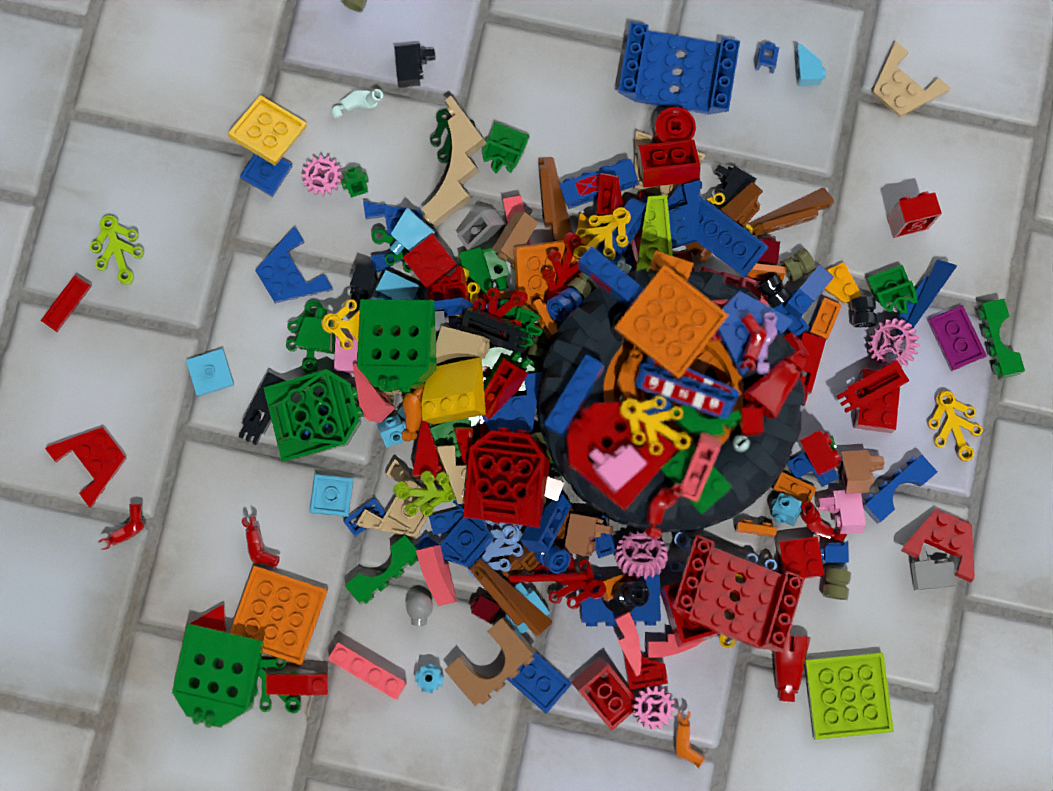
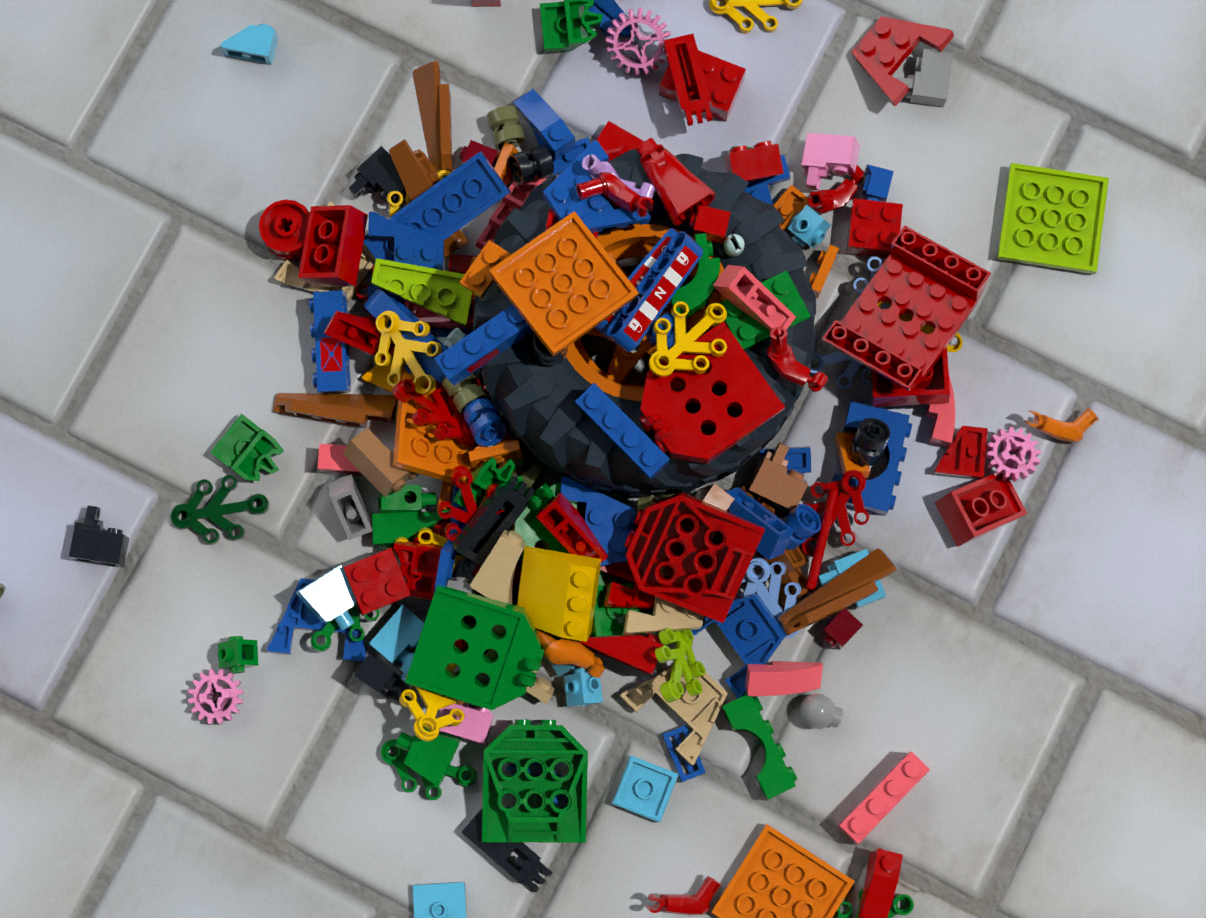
camera: 70 degrees left, 0 degrees up
(266, 175) = (188, 769): blue plate -> none
(267, 130) = (133, 753): yellow plate -> none
(282, 276) = (338, 782): blue wing -> none
(358, 99) = (125, 620): light aqua arm -> none
(371, 399) = (540, 702): coral slope -> none
(436, 681) = (902, 724): medium azure brick -> none
(445, 521) = (716, 649): blue plate -> none
(465, 142) = (228, 496): tan arch -> none
(516, 651) = (937, 659): medium nougat arch -> none
(540, 683) = (942, 589): blue tile -> none
(618, 470) = (734, 399): bright pink hinge -> none
(628, 375) = (613, 359): orange arm -> none
(629, 641) = (927, 458): coral slope -> none
(641, 560) = (836, 417): bright pink gear -> none
(706, 70) = (217, 169): blue slope -> none
(767, 56) = (224, 89): blue window -> none
(790, 667) = (1005, 278): red piece -> none
(825, 318) = (582, 114): orange plate -> none
(837, 582) = (915, 193): olive wheel -> none
(842, 284) = (546, 81): light orange wing -> none
(856, 470) = (787, 130): nougat hinge -> none
(863, 309) = (586, 66): black wheel -> none
(916, 473) = (829, 113): blue arch -> none

